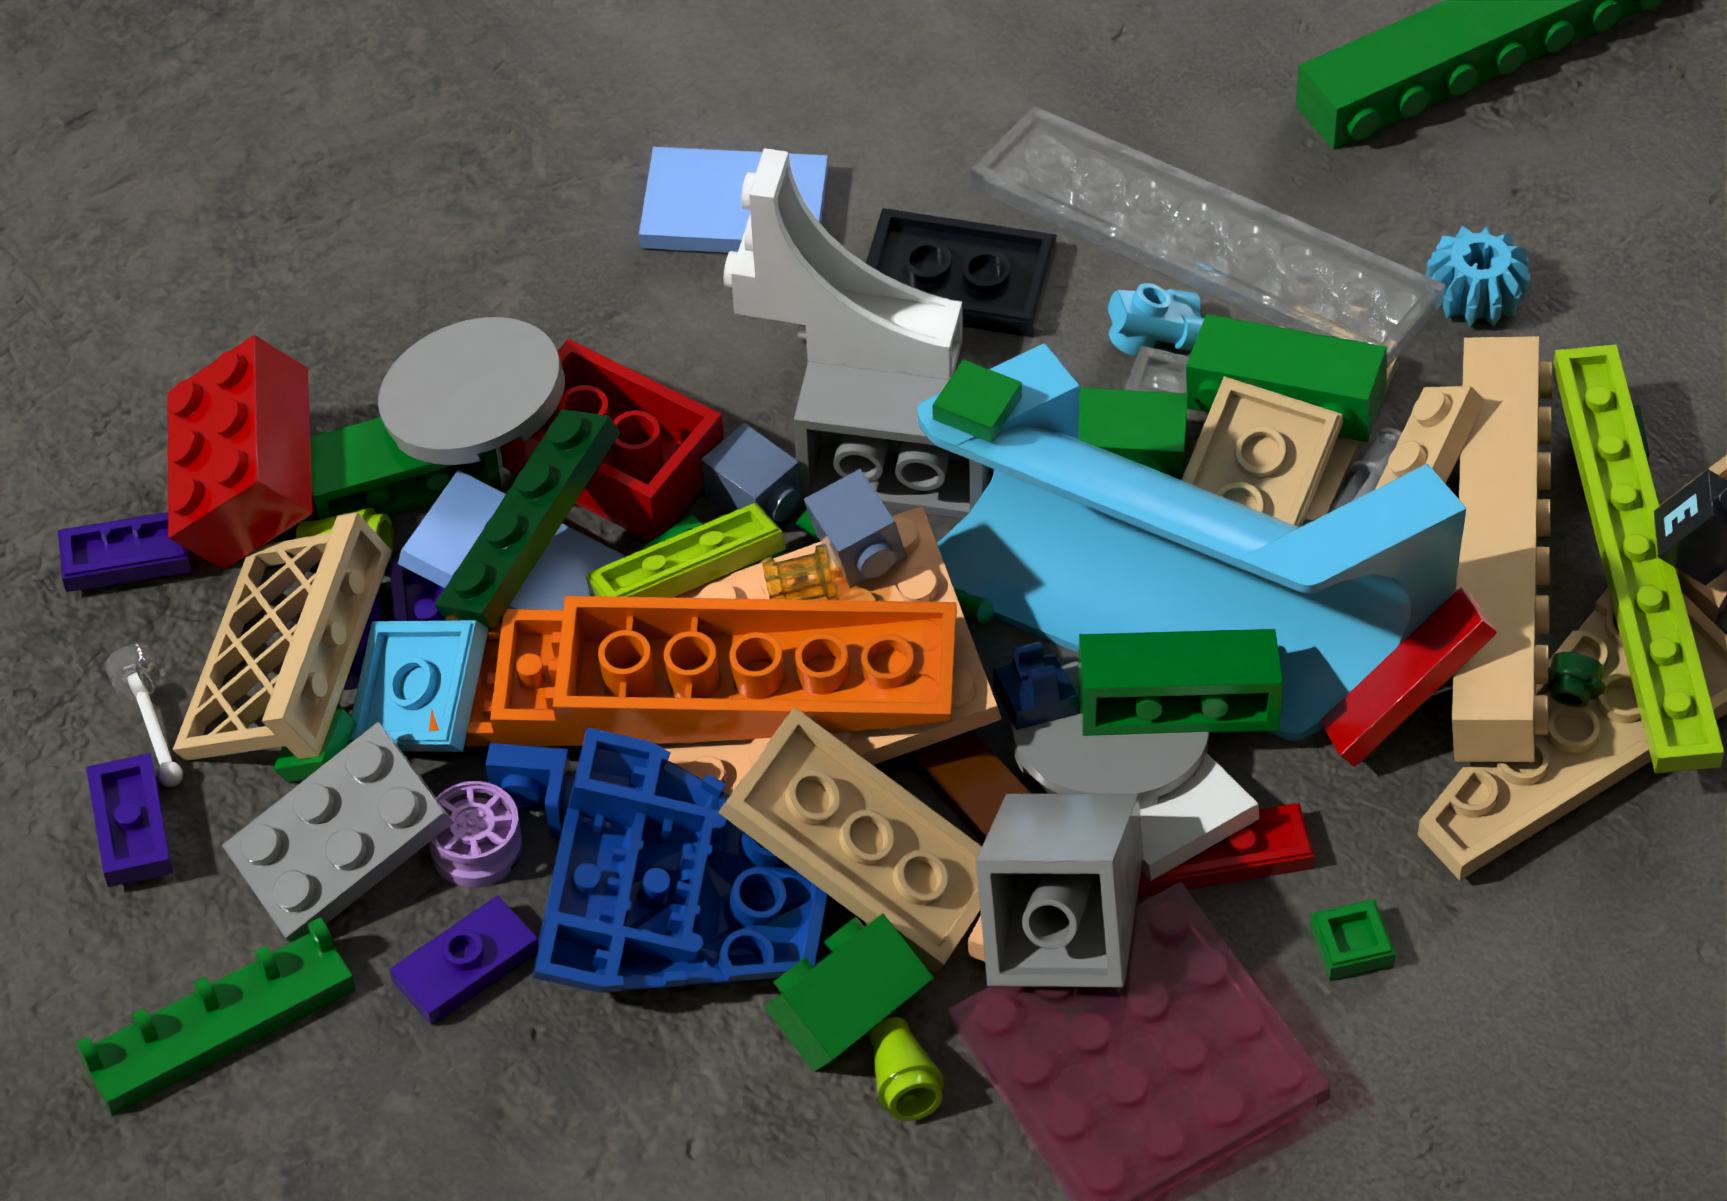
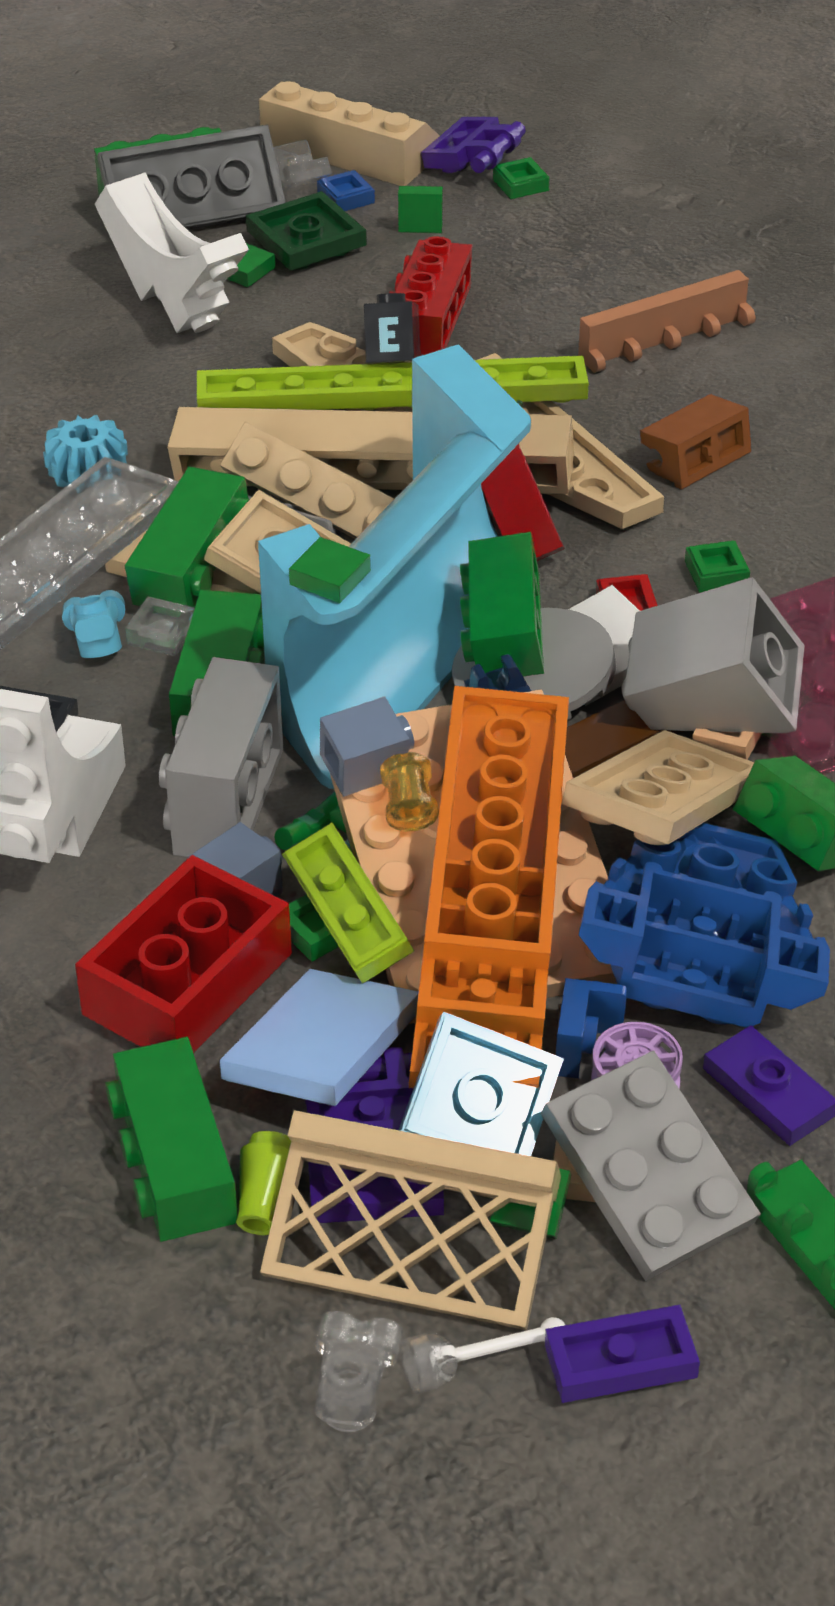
camera: 90 degrees left, 10 degrees down
(119, 552) = (257, 1383): dark purple plate -> none
(122, 613) = (352, 1367): none -> clear plate
(239, 453) = (166, 1246): red brick -> none
(471, 389) = (134, 1033): light grey tile -> none
(527, 518) = (315, 980): dark green plate -> none
(1609, 912) = (698, 439): none -> dark orange hinge

